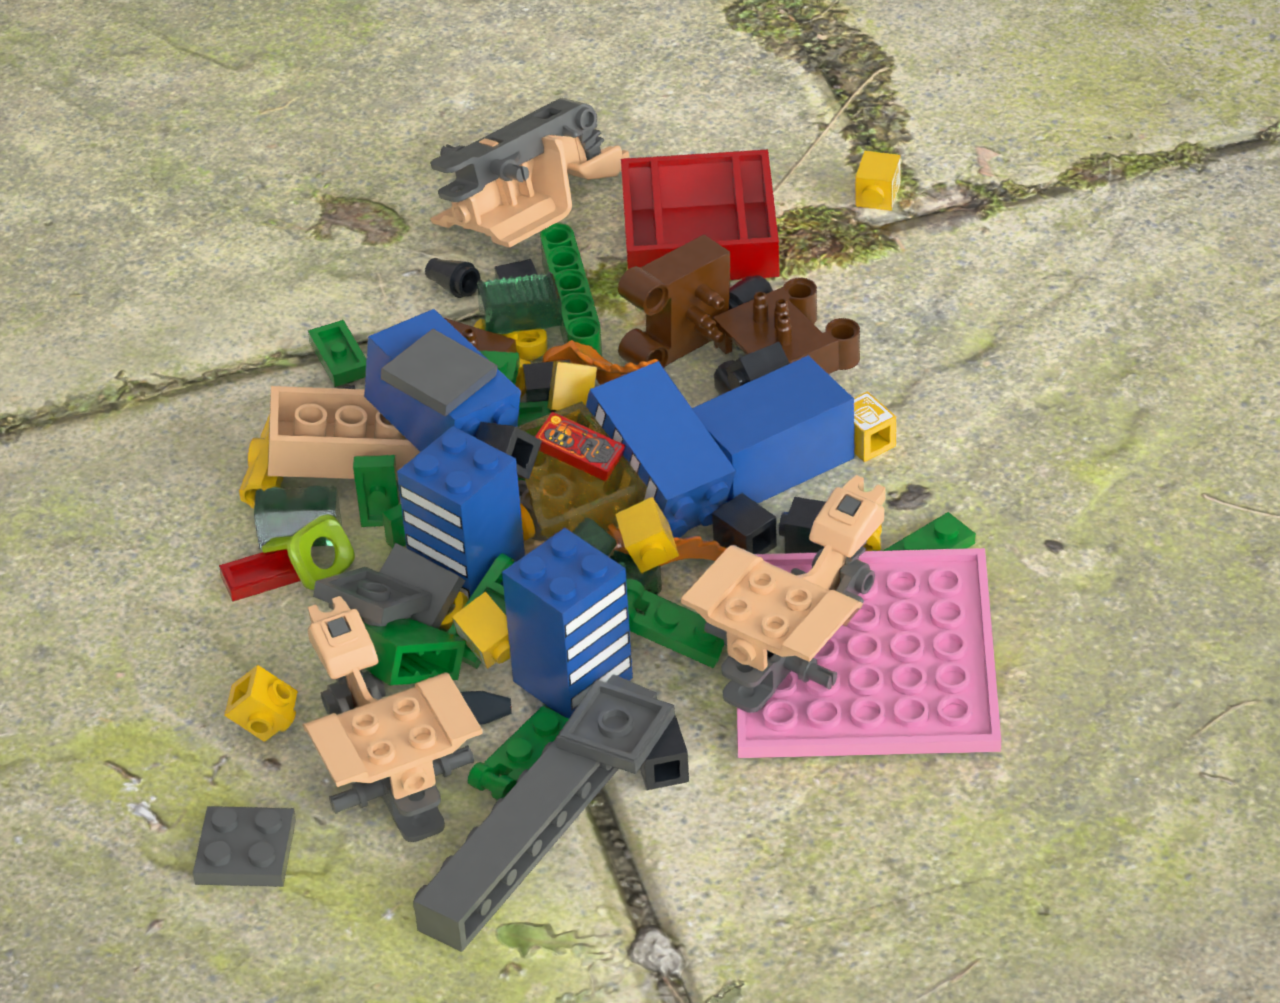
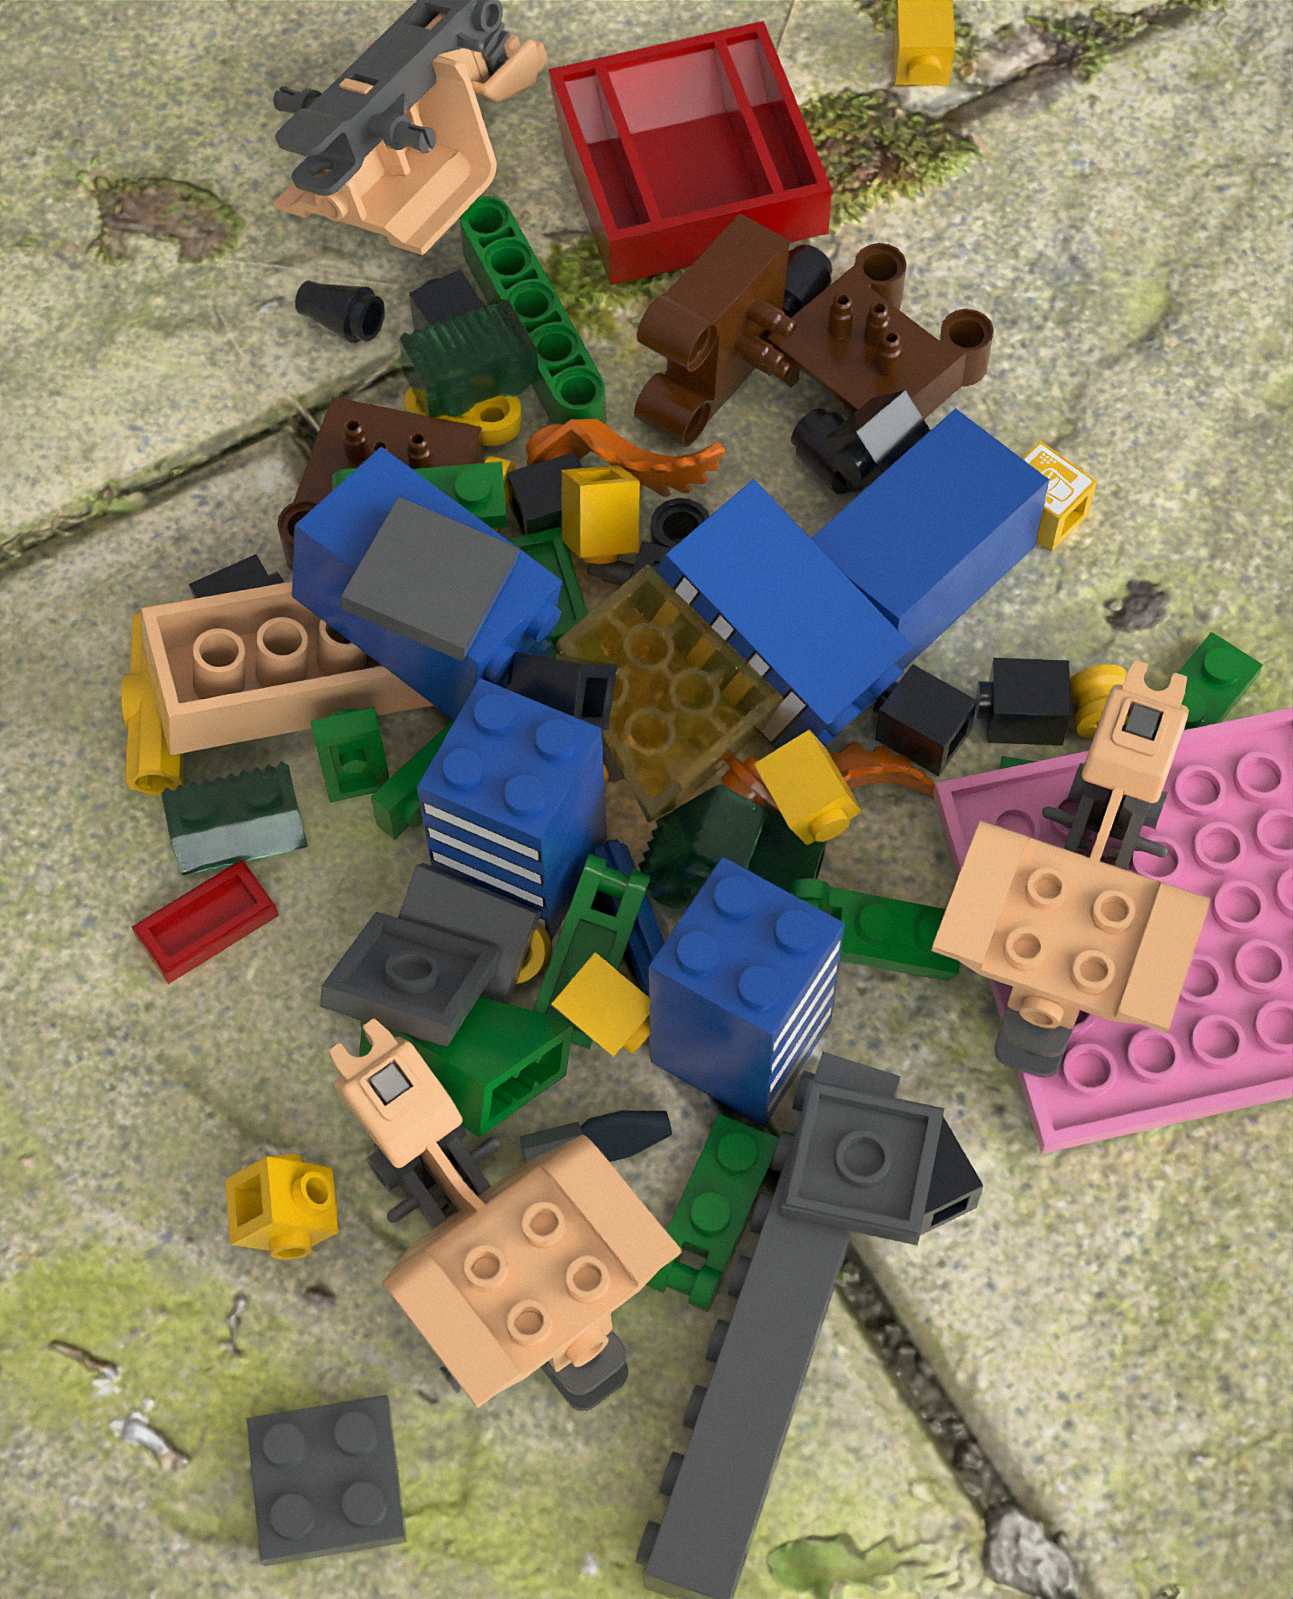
camera: 15 degrees left, 20 degrees up
(300, 549) = (260, 881): lime piece -> none
(338, 352) = (207, 482): green plate -> none
(579, 446) = (670, 654): tile -> none

